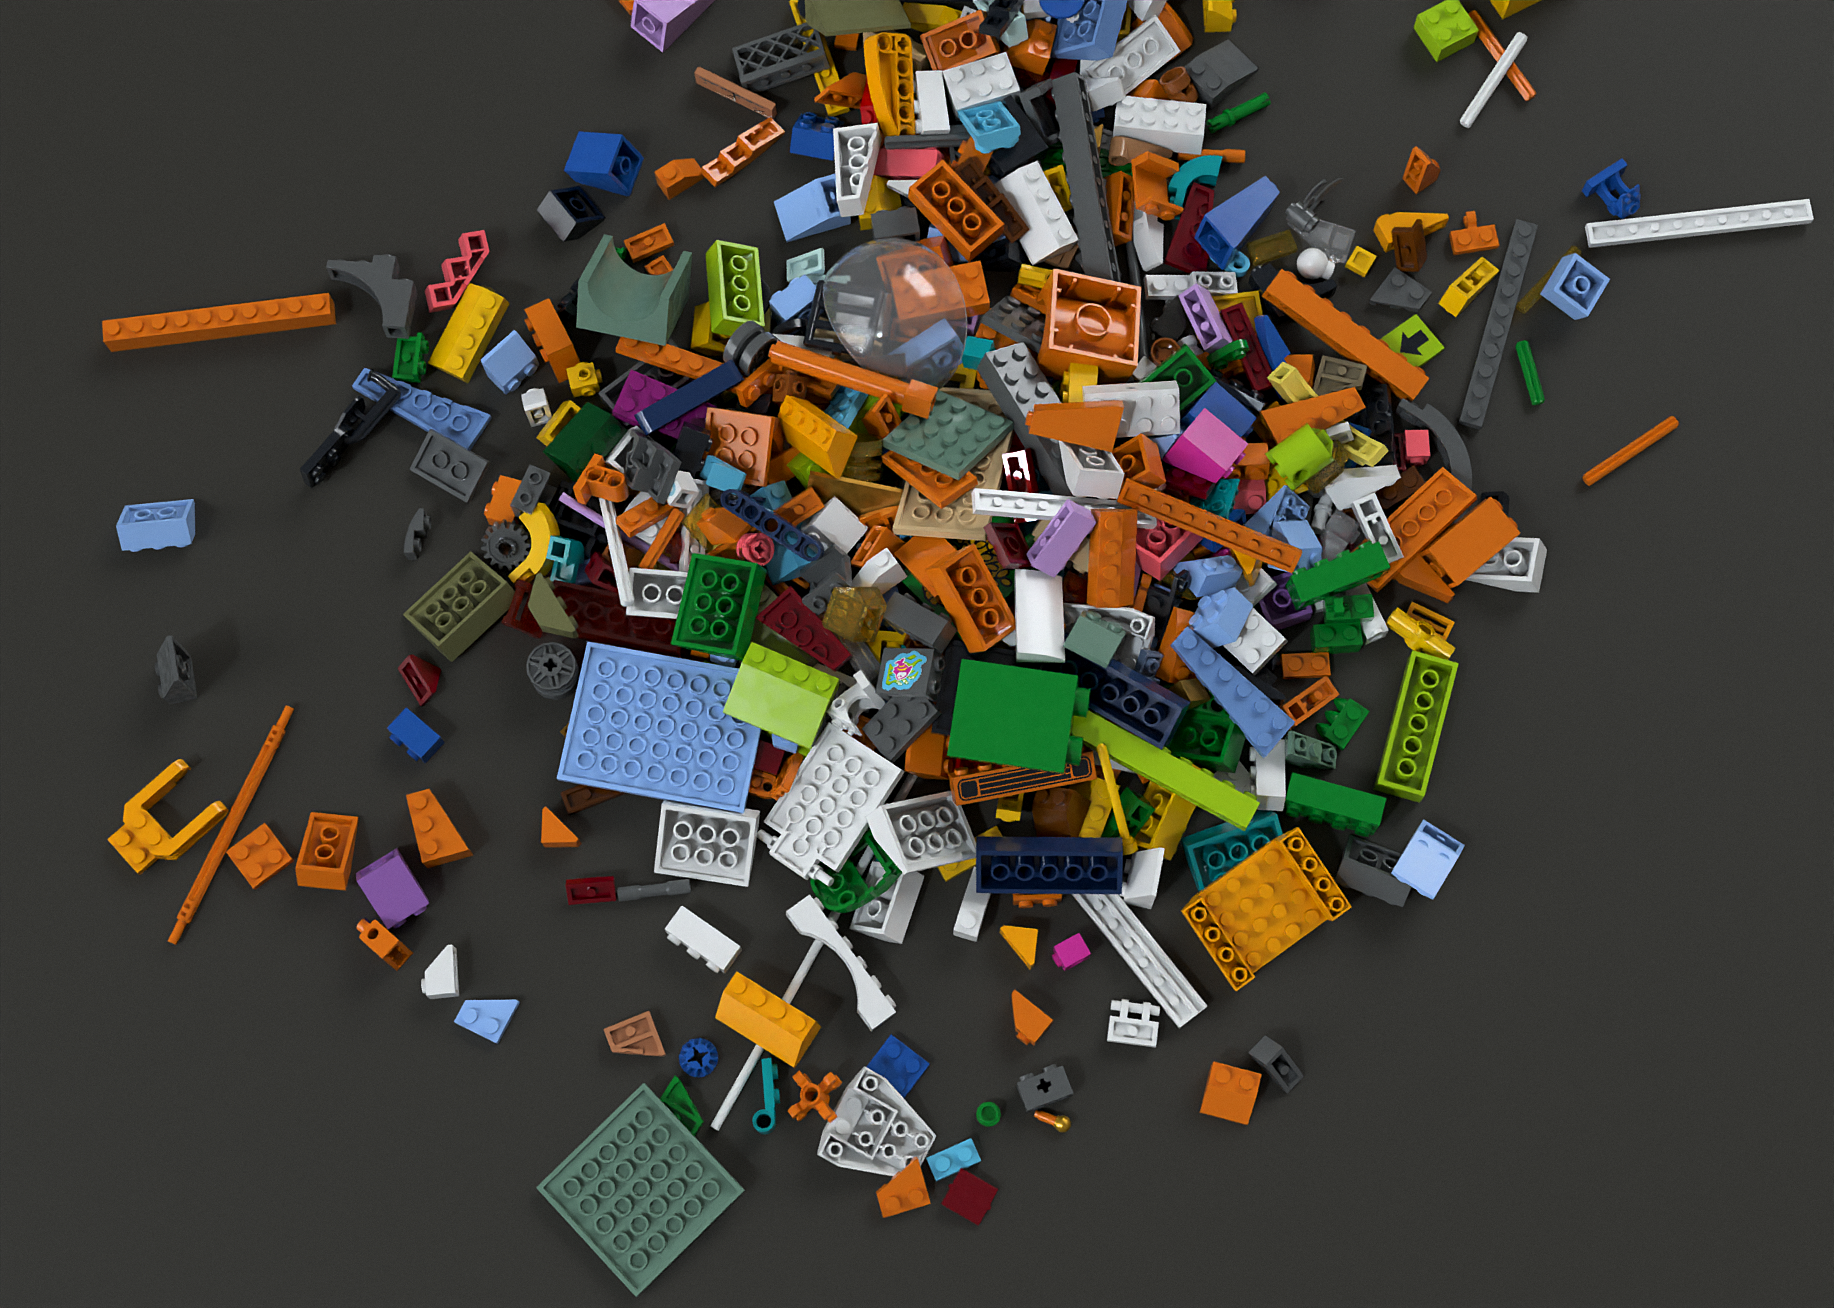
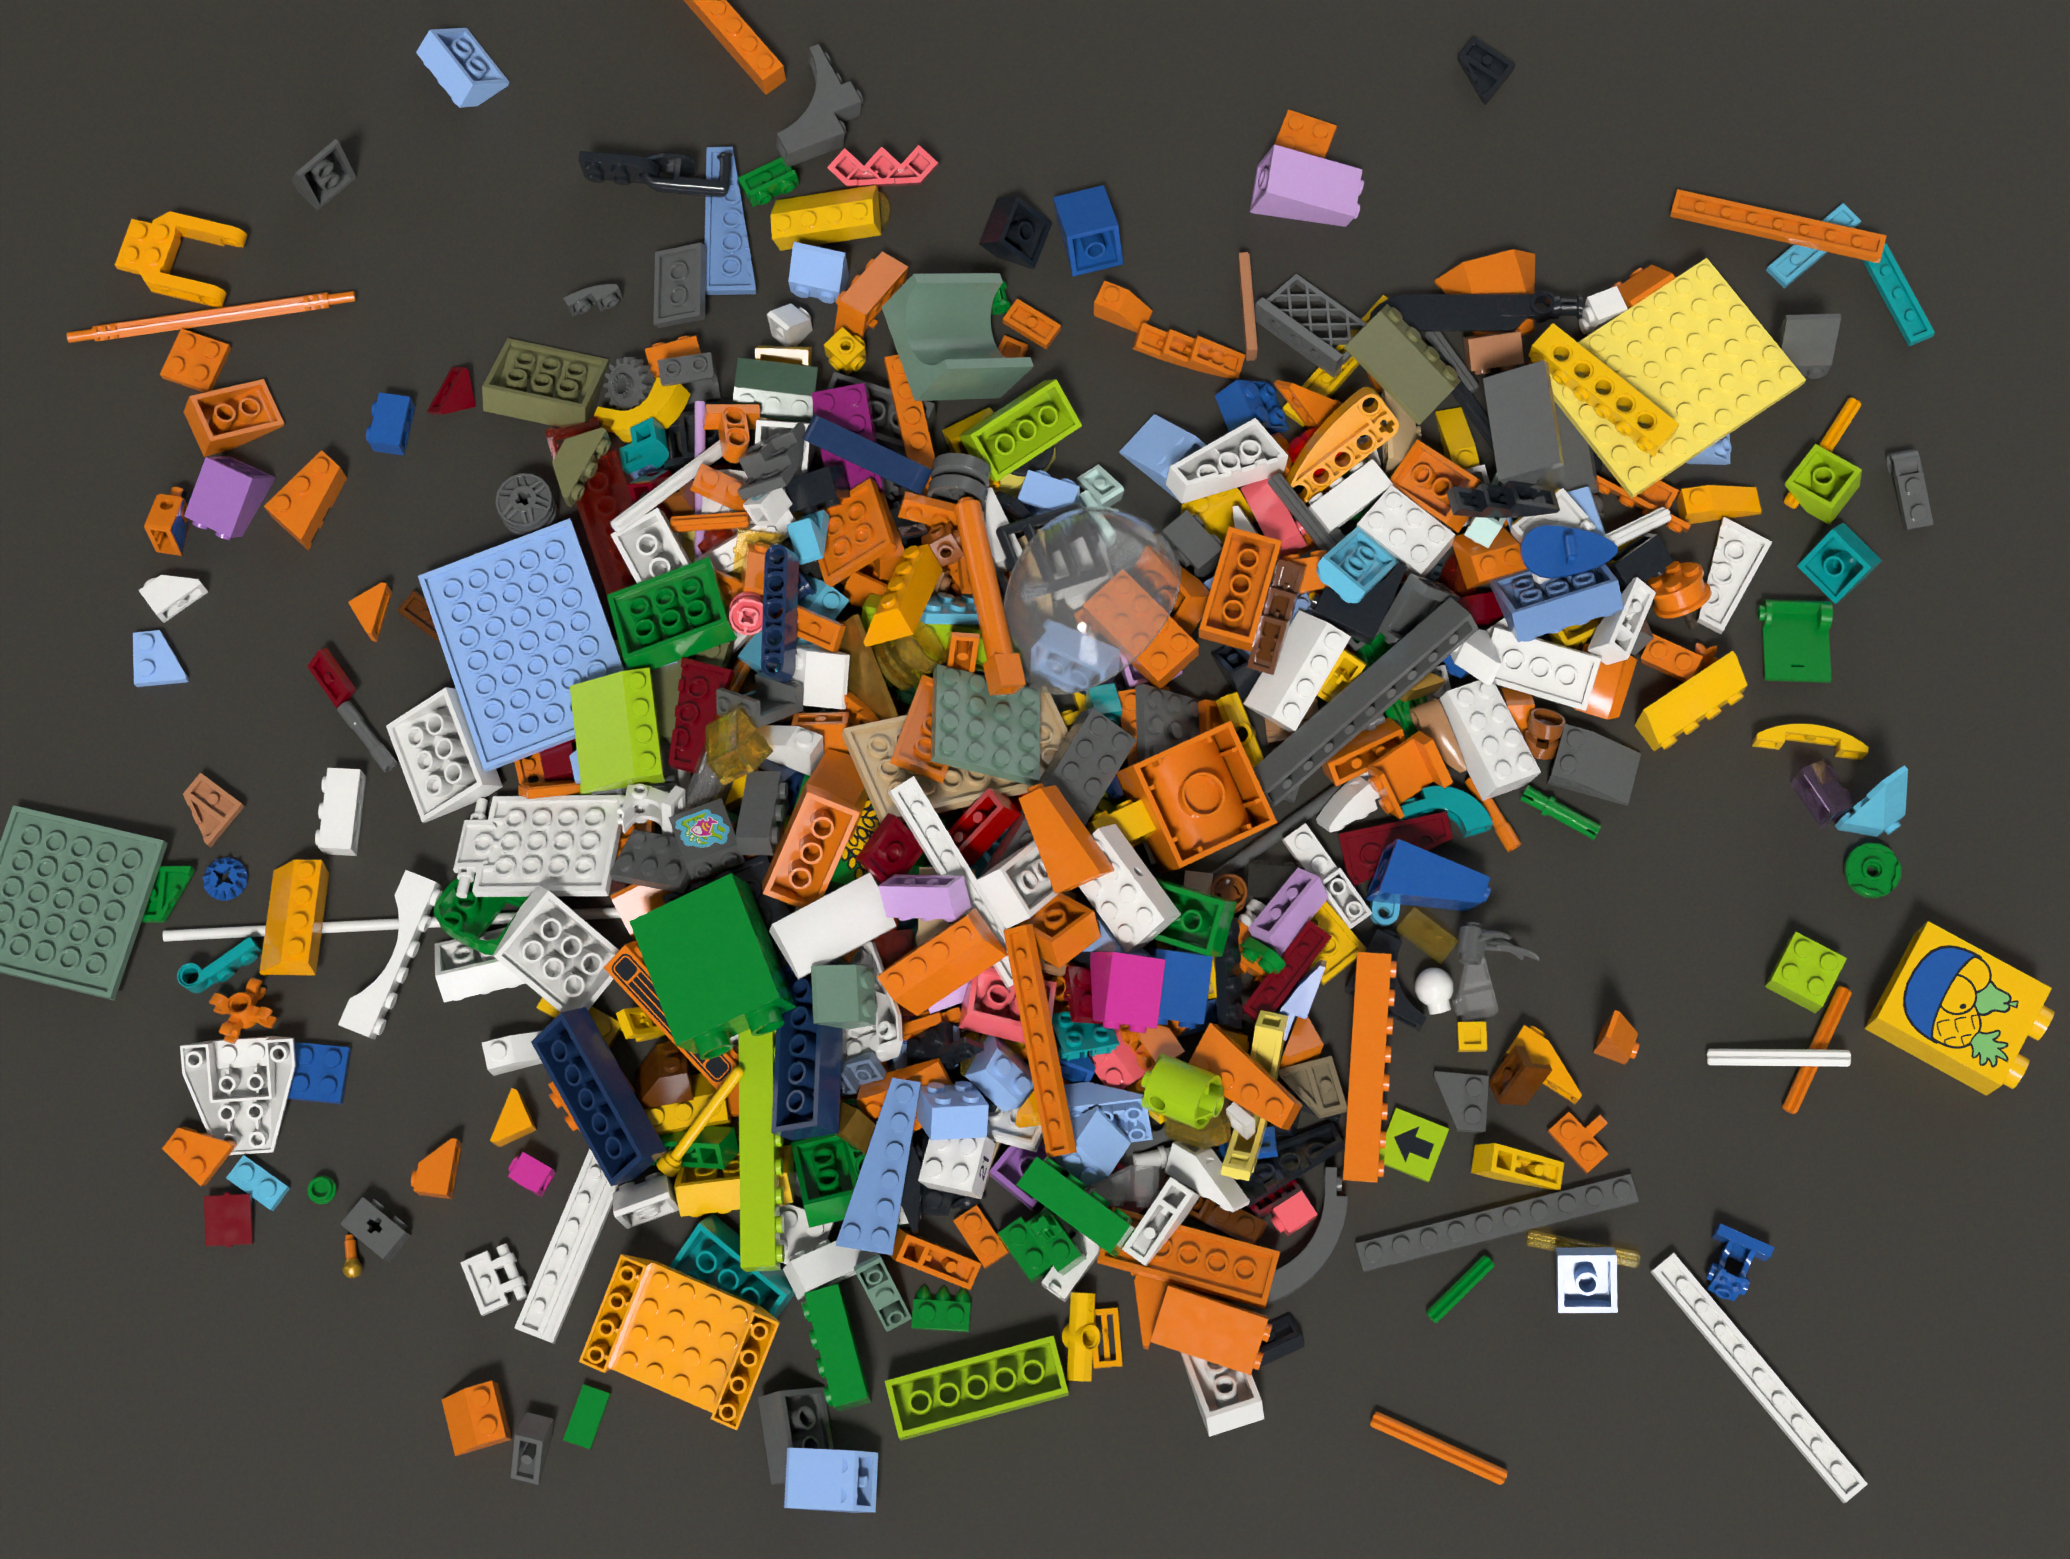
camera: 60 degrees right, 0 degrees up
(1274, 1013) = (587, 1417): none -> green tile

